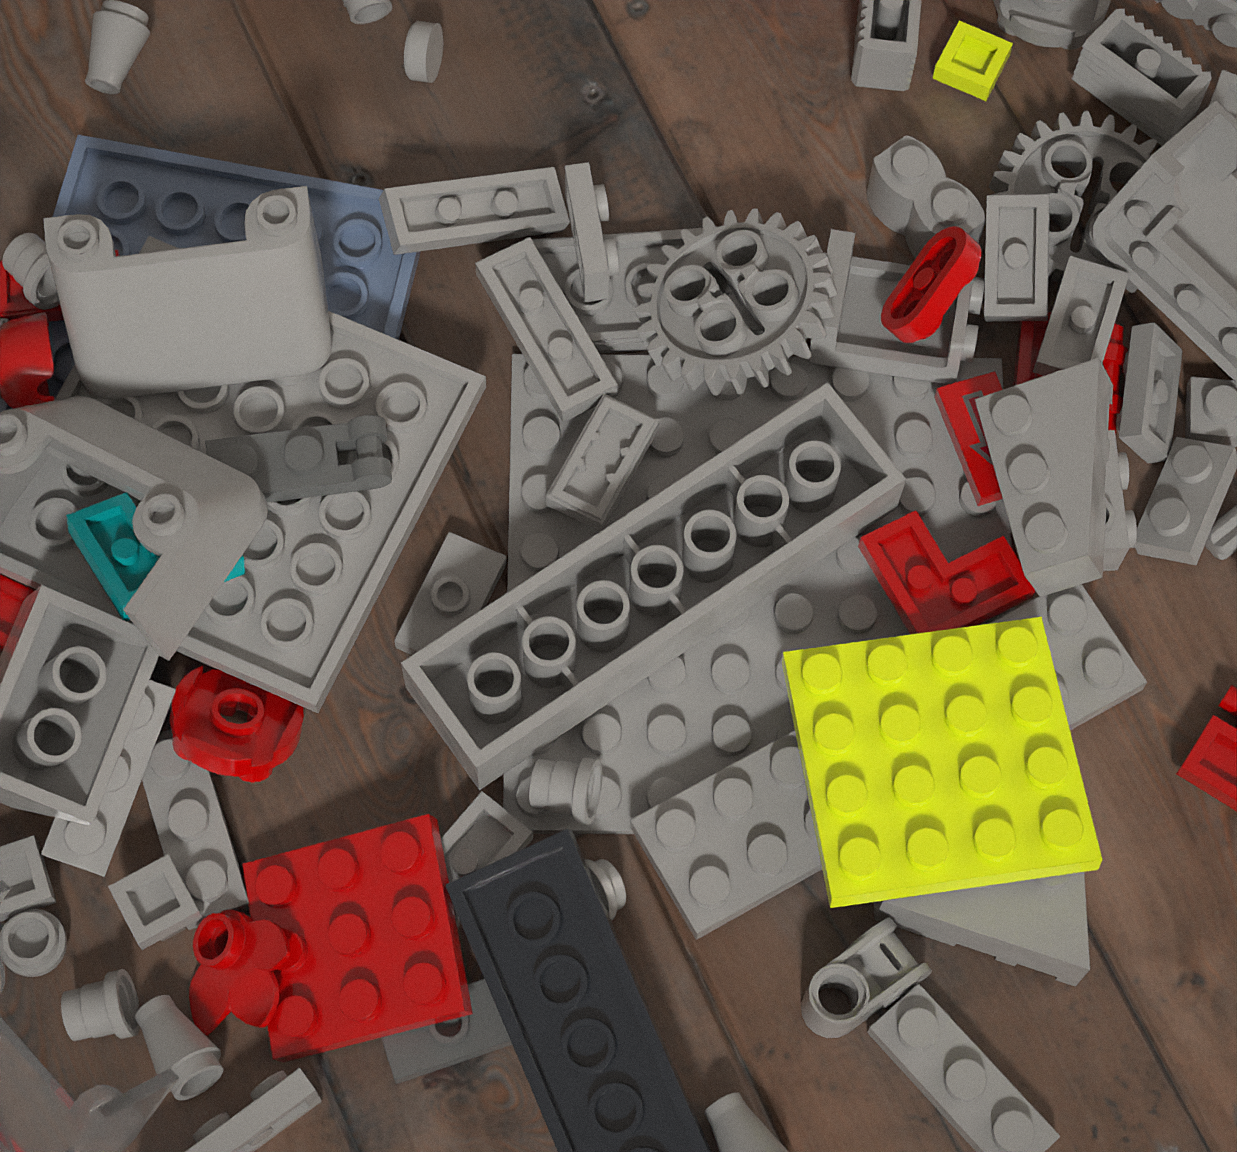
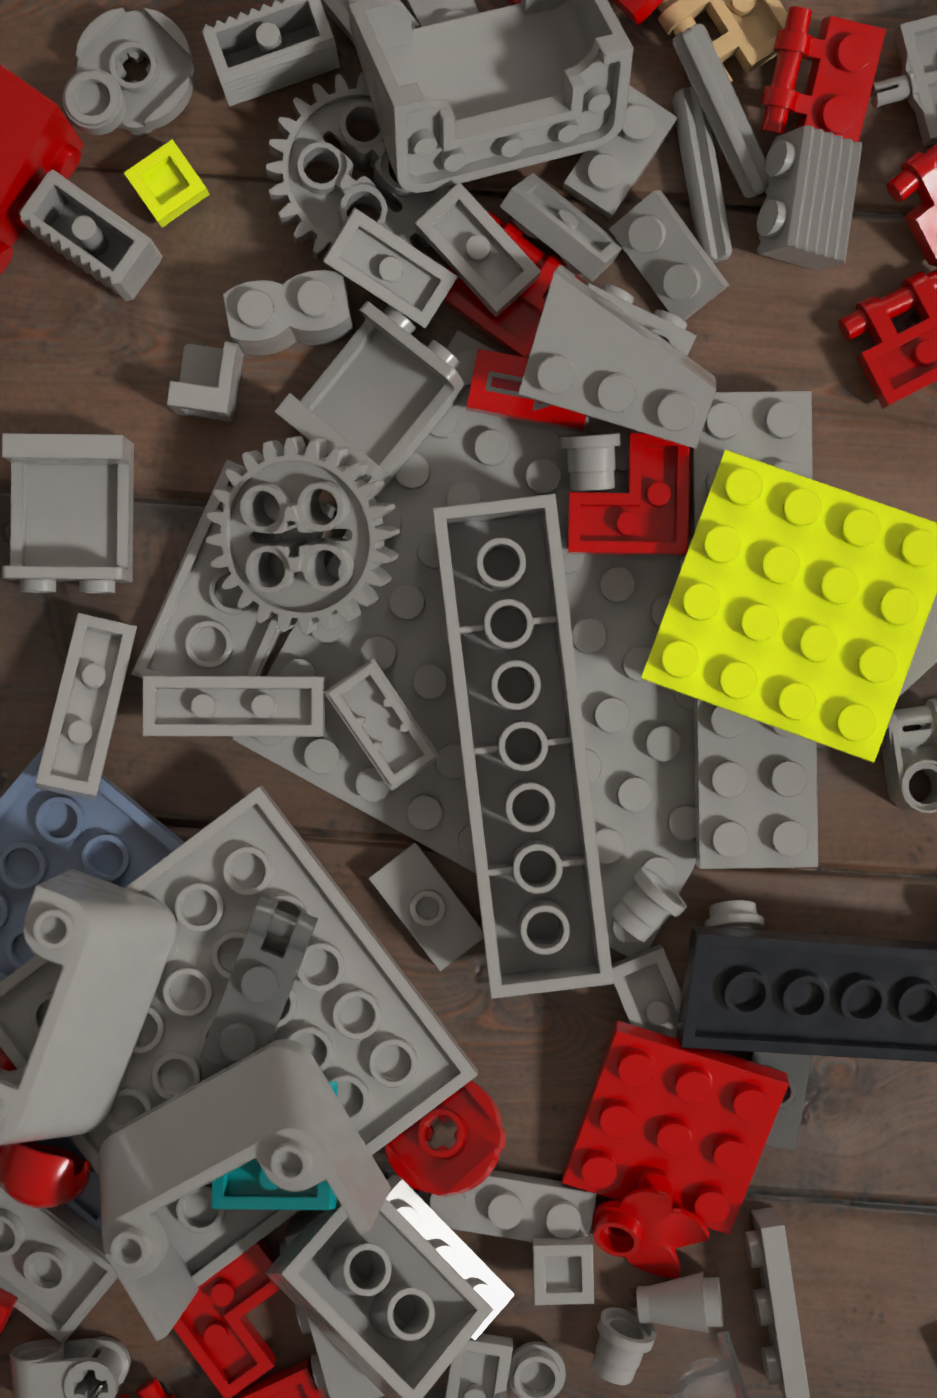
camera: 60 degrees left, 20 degrees up
(586, 209) = (140, 611): light grey plate -> none
(643, 121) = (70, 511): none -> light grey panel
(821, 179) = (208, 382): none -> light grey panel
(931, 285) = (380, 360): red plate -> none
(958, 517) = (591, 460): none -> light grey piece

